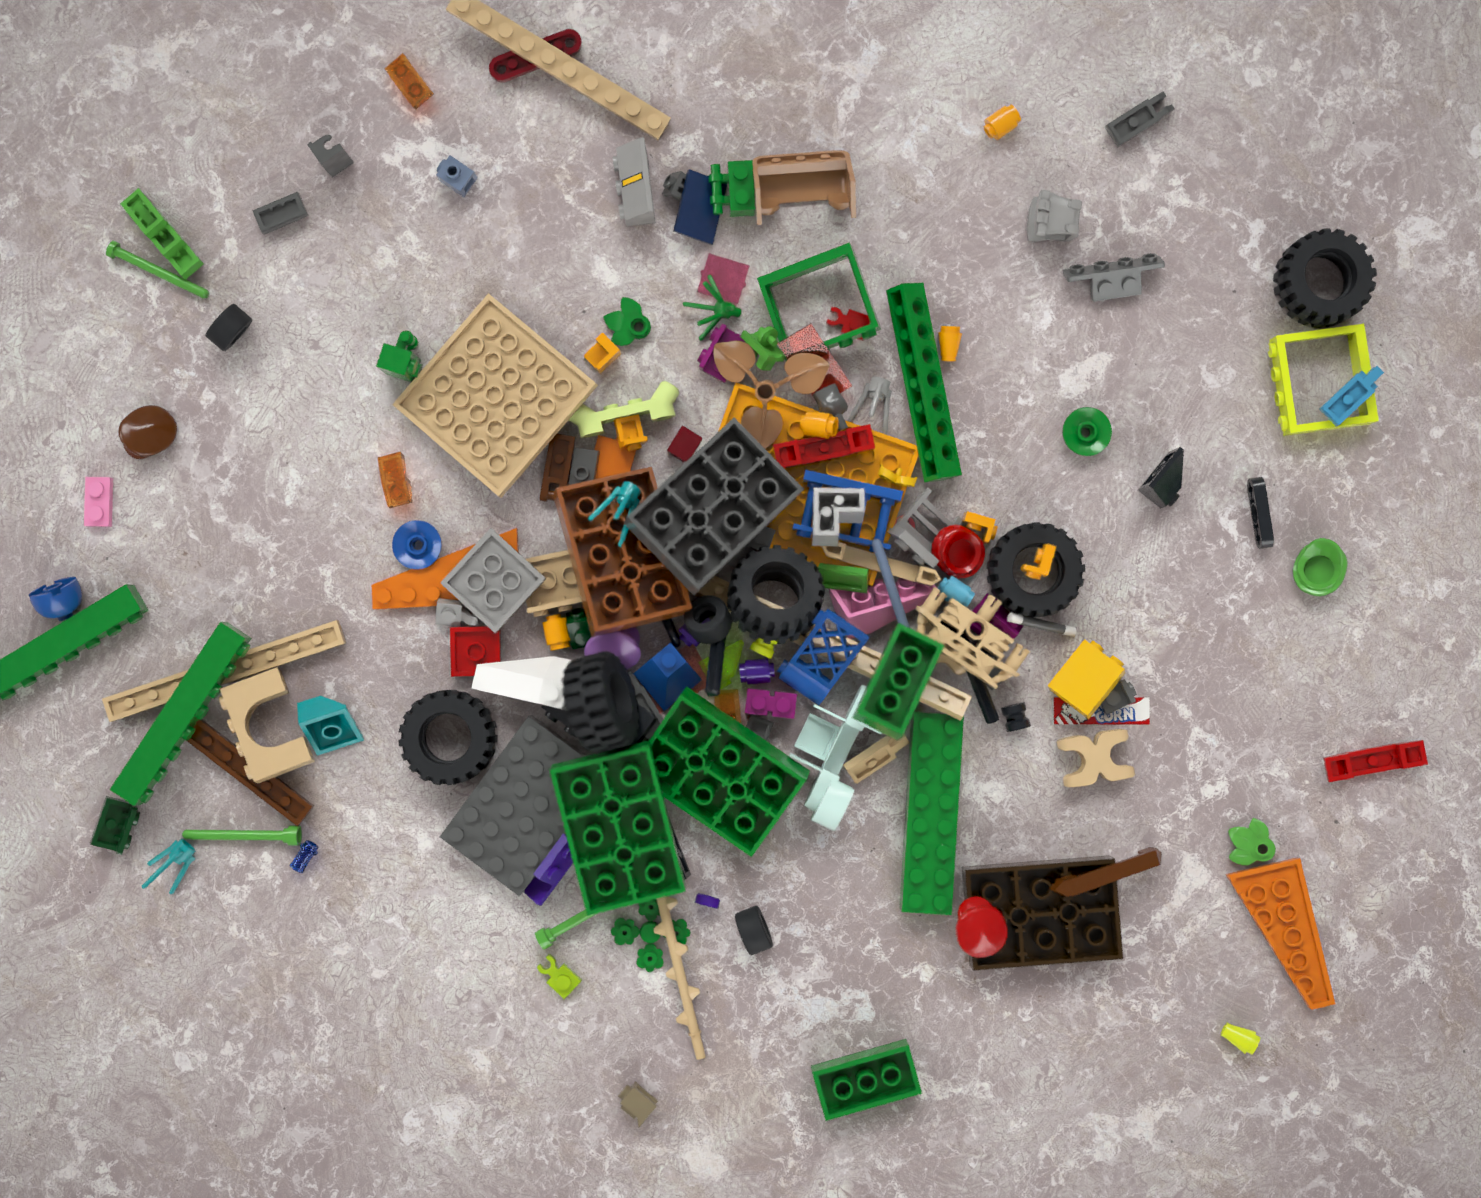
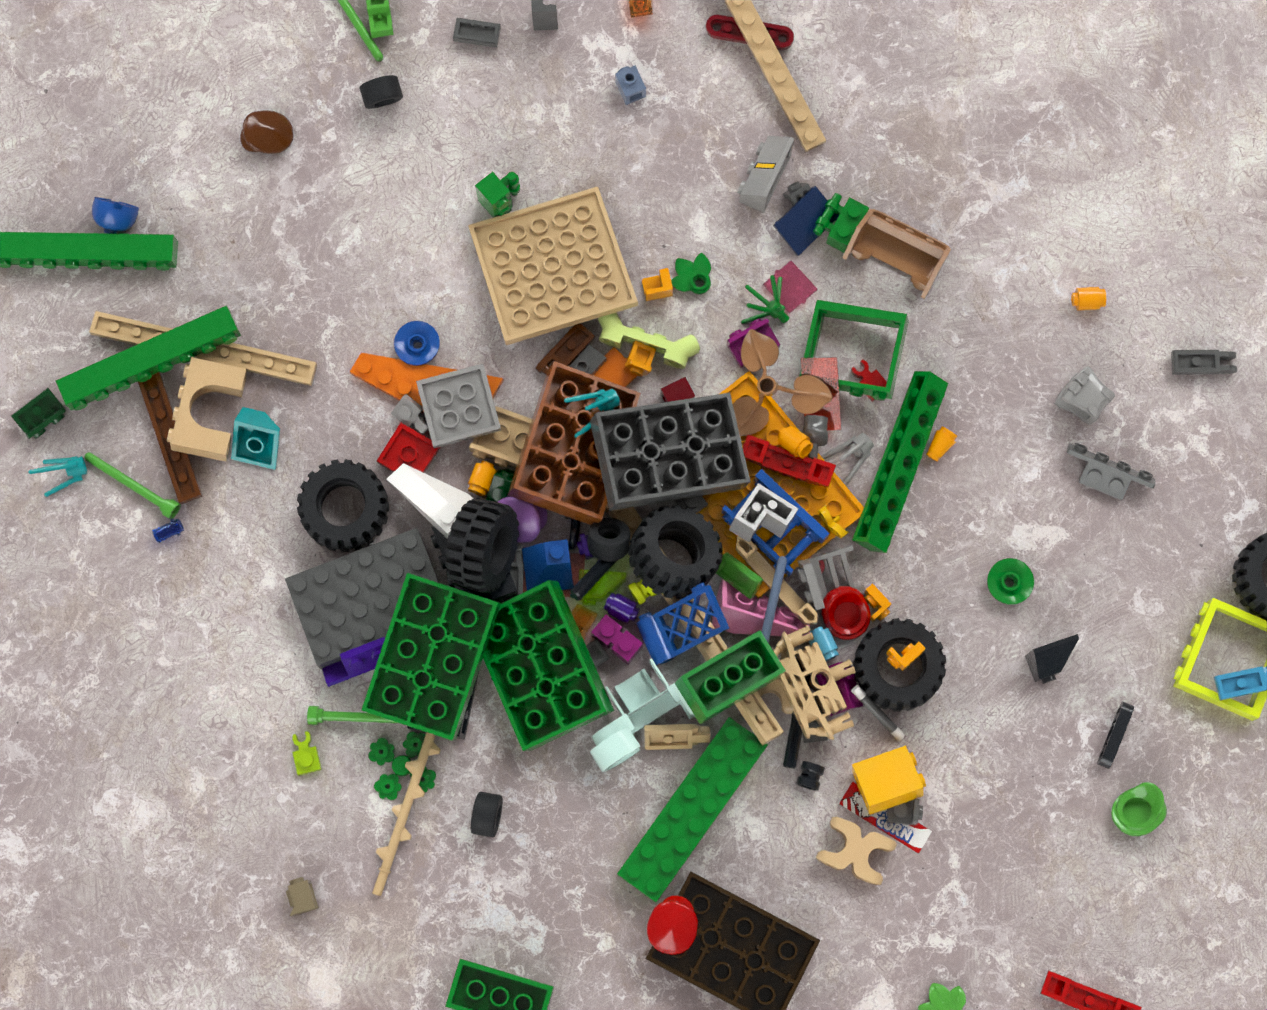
camera: 30 degrees right, 10 degrees down
(98, 501) = (193, 162): bright pink plate -> none
(394, 480) = (431, 283): clear orange slope -> none
(707, 900) = (464, 767): dark purple tile -> none
(764, 344) = (789, 356): bright green hips -> none
(1074, 885) = (807, 948): reddish brown piece -> none

